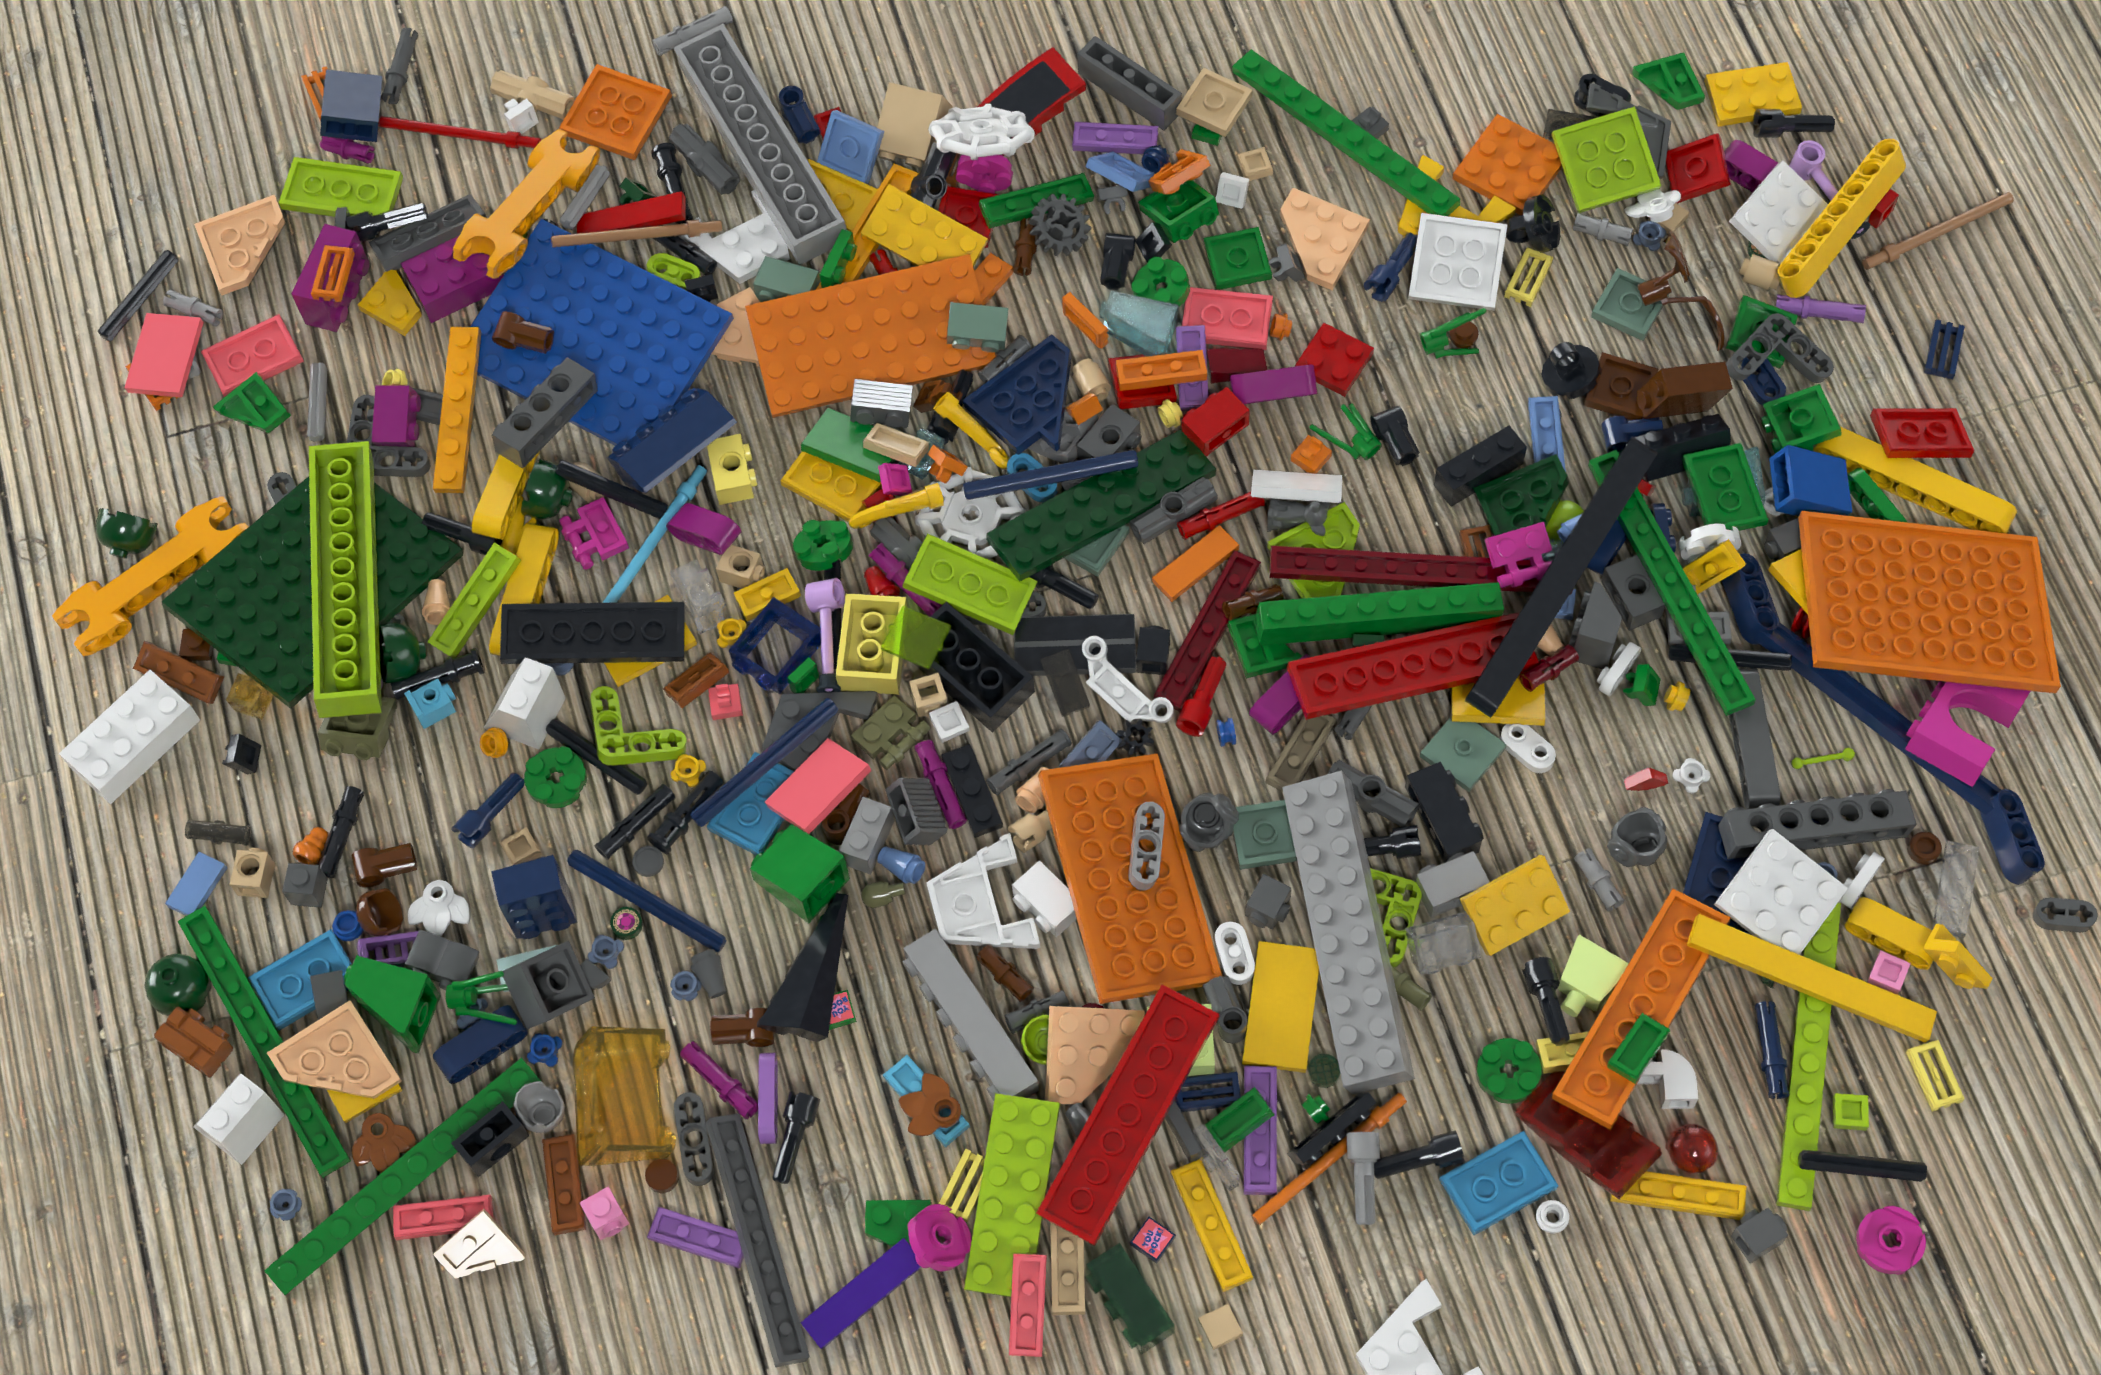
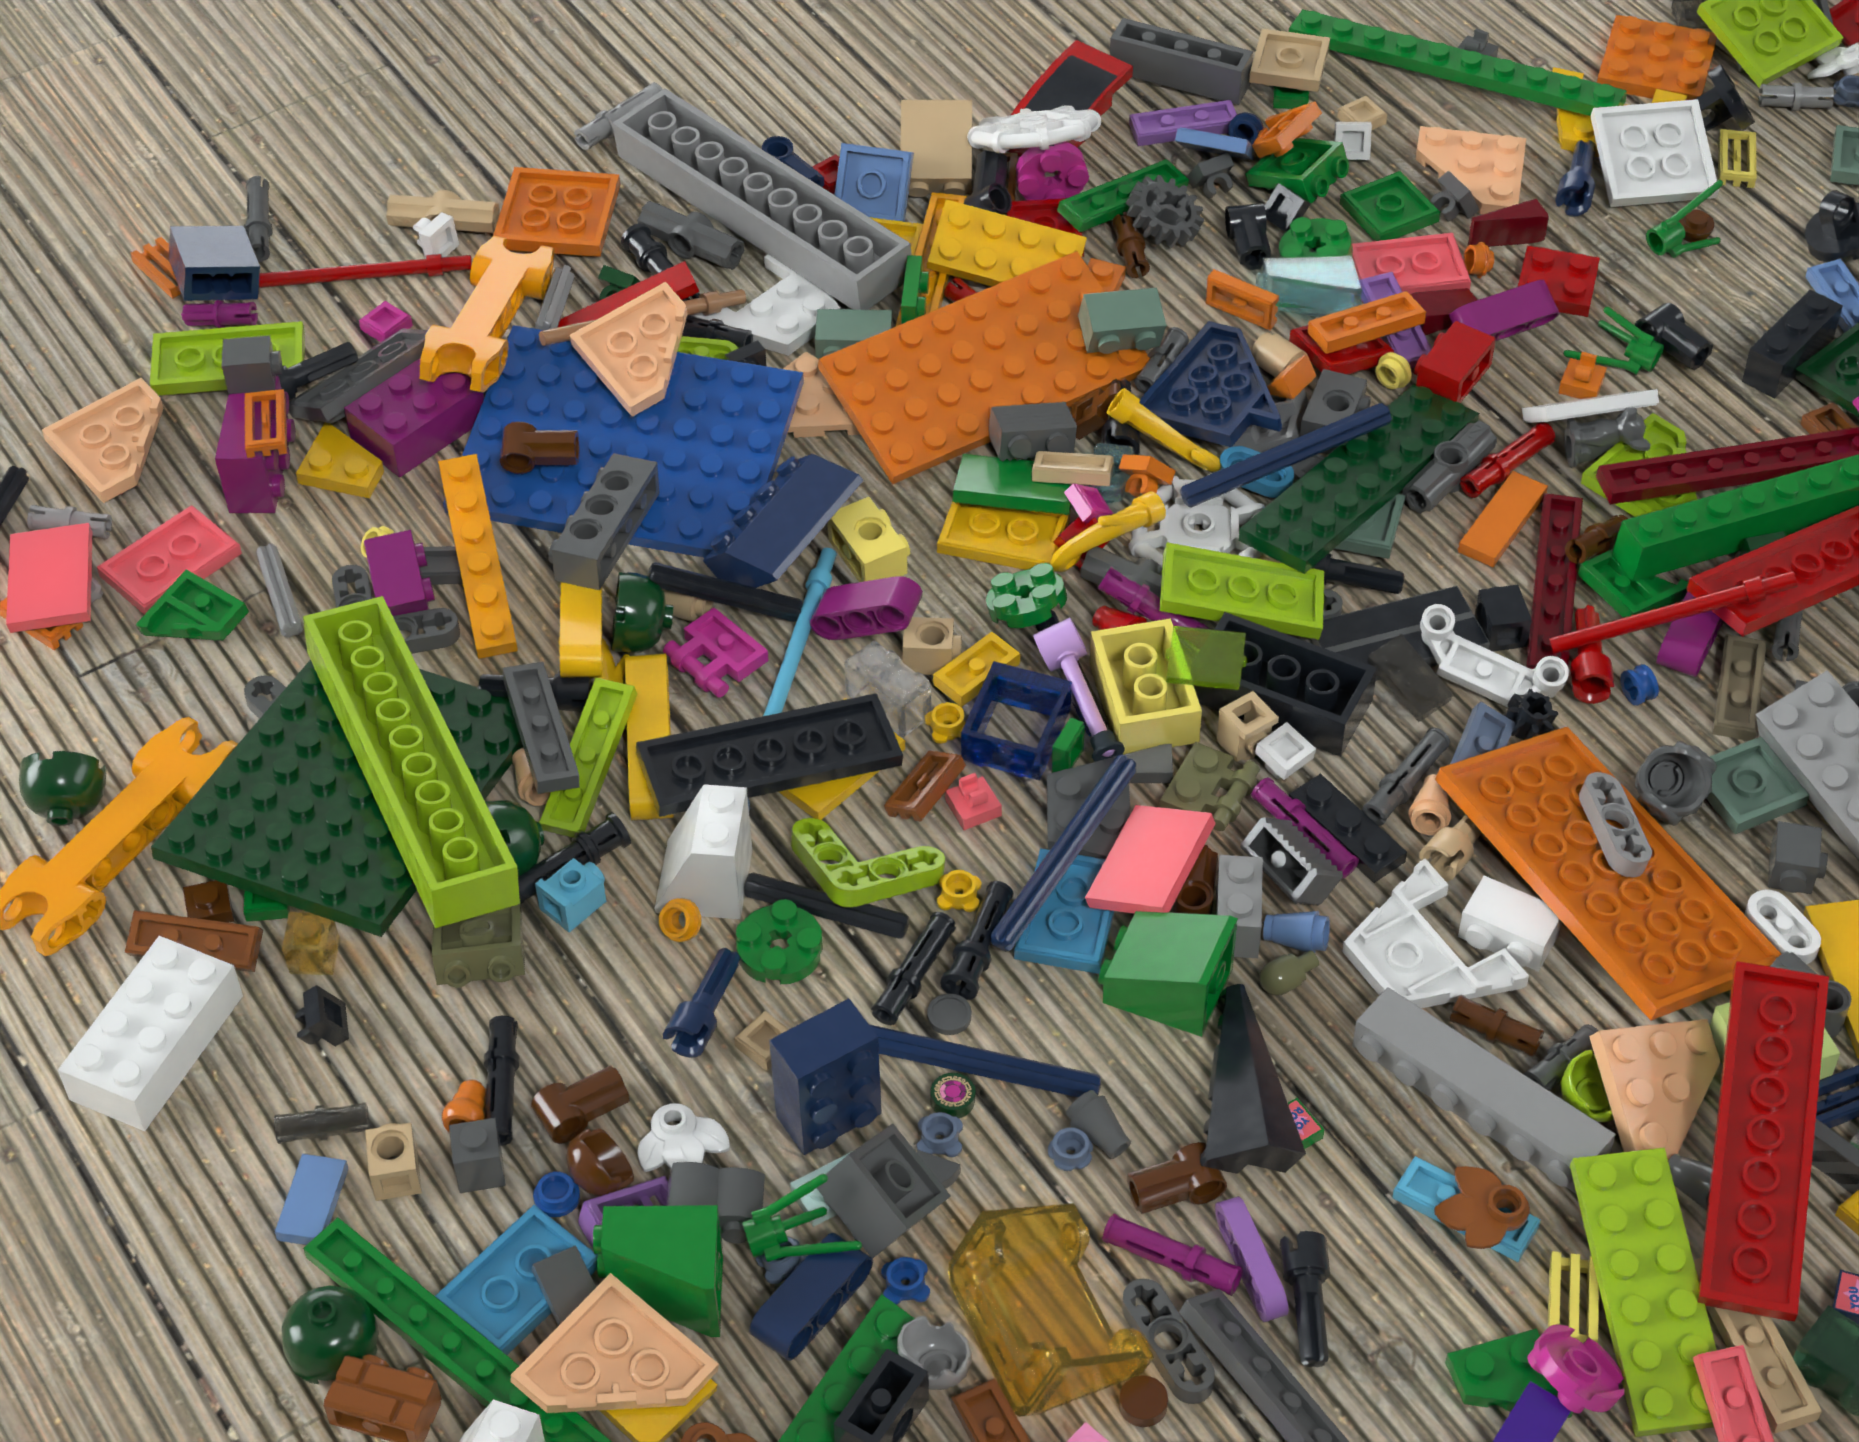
camera: 20 degrees left, 15 degrees down
(334, 221) = (250, 364): none -> dark grey brick
(446, 571) = (540, 728): none -> dark grey plate
(462, 182) = (384, 321): none -> dark pink tile
(616, 265) = (635, 347): none -> light nougat plate
(1317, 301) = (1510, 225): none -> dark red slope
(1319, 689) = (1752, 590): none -> red bar

